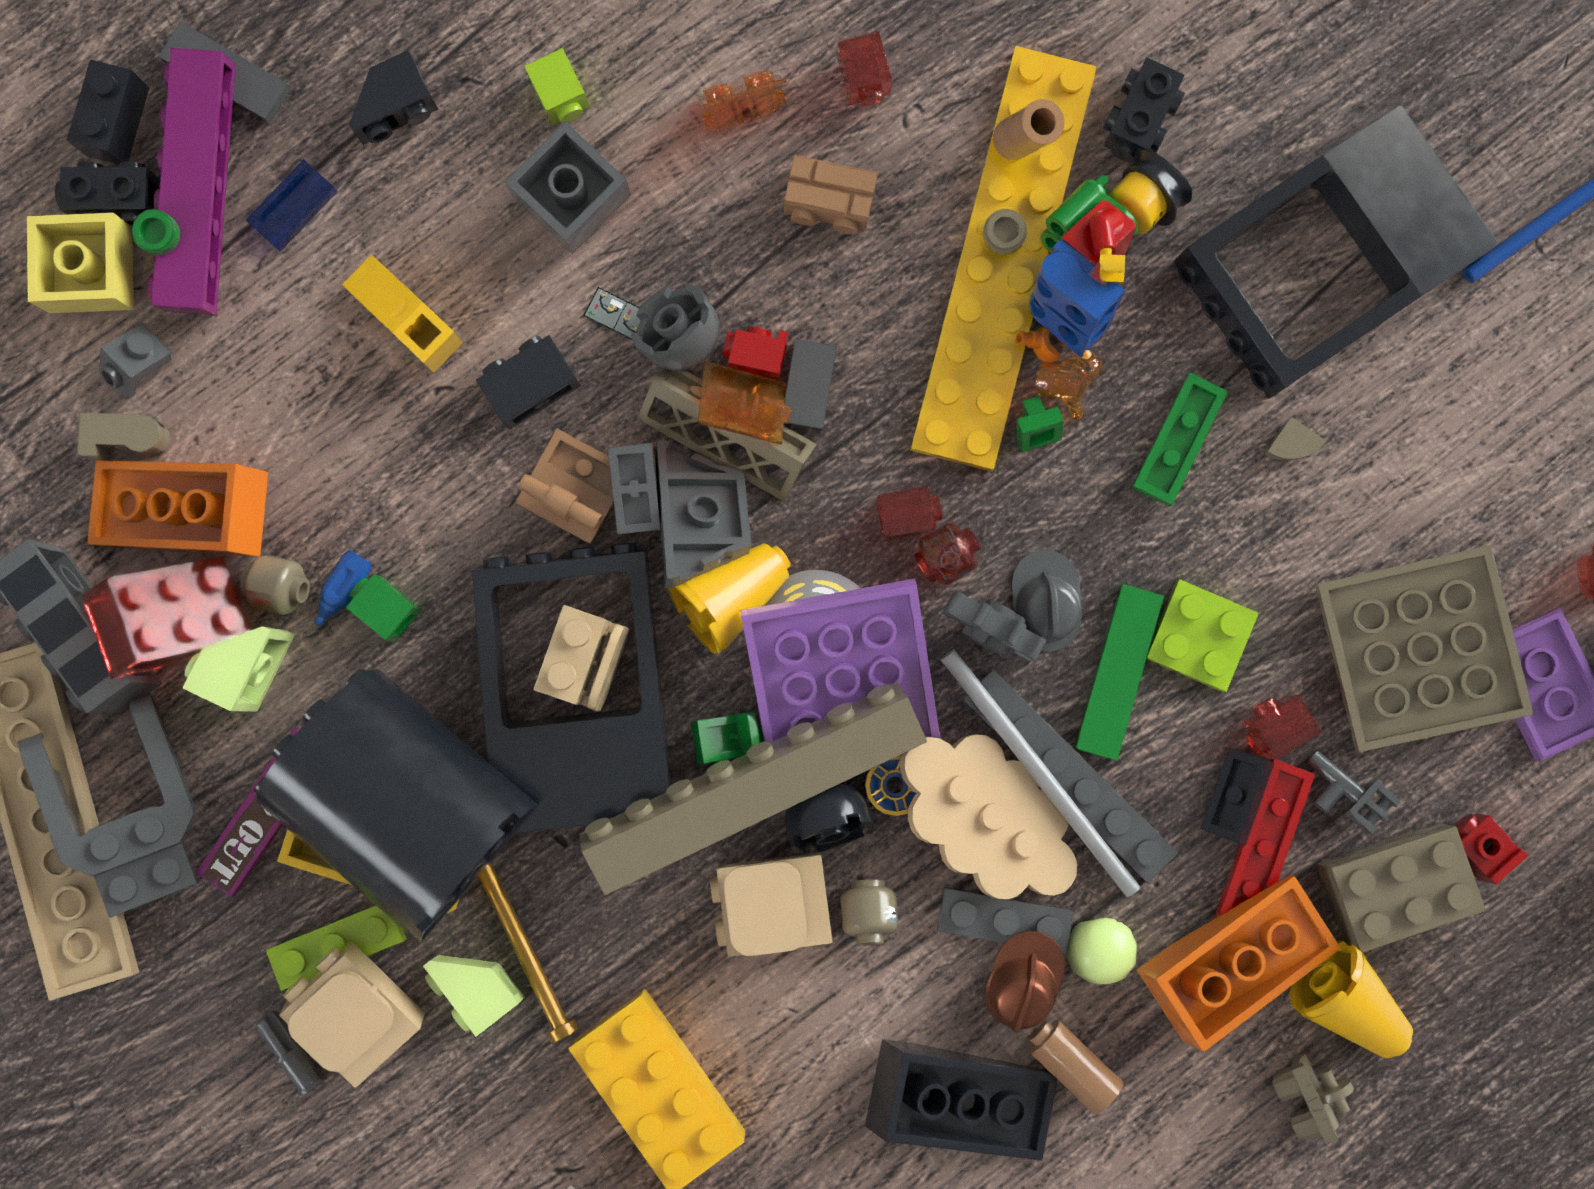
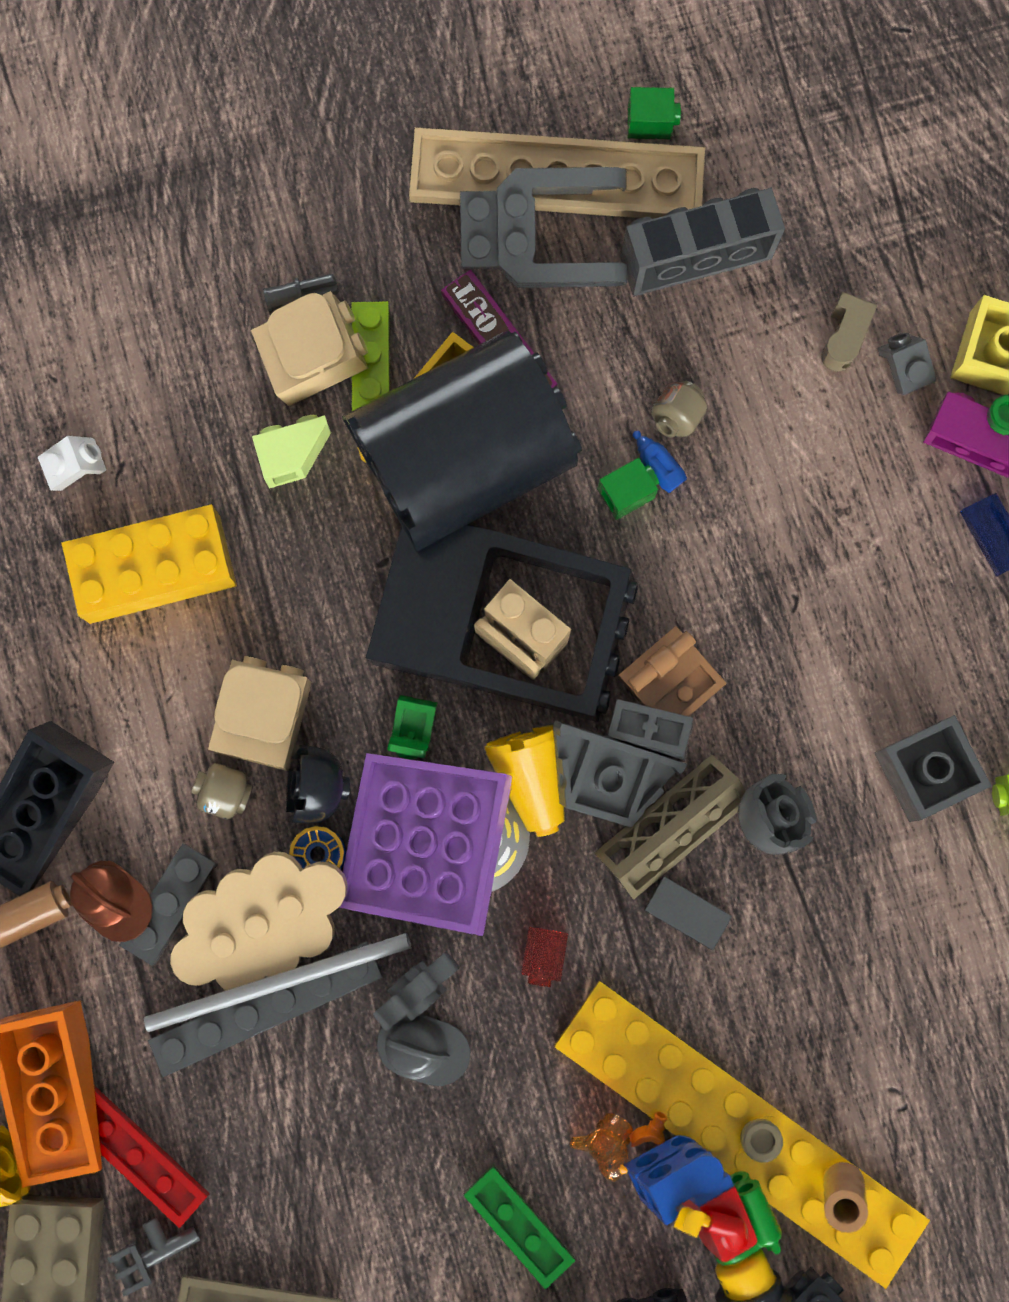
camera: 110 degrees right, 5 degrees down
(163, 615) = (683, 314): clear red brick -> none
(178, 507) = (771, 357): orange slope -> none
(238, 668) = (618, 355): yellowish green slope -> none
(403, 313) = (870, 591): yellow slope -> none
(527, 381) = (776, 673): black brick -> none
(560, 1025) = (299, 501): pearl gold bar -> none
(613, 312) = (810, 768): light grey sticker -> none
(743, 403) = (690, 848): clear orange hinge -> none
(751, 787) = (361, 732): dark tan brick -> none
(756, 351) = (732, 877): red brick -> none
(758, 83) = (969, 972): clear orange hinge -> none
(829, 194) = (849, 996): medium nougat brick -> none
(864, 69) = (952, 1071): clear red brick -> none
(948, 553) = (495, 977): clear red head -> none
(1037, 425) = (578, 1101): green tile -> none
(1101, 951) = (108, 977): yellowish green hair -> none
(1118, 672) = (337, 1088): green tile -> none
(1201, 635) = (340, 1176): lime plate -> none
(1237, 796) = (188, 1150): black plate -> none
(1280, 726) = (233, 1214): clear red brick -> none

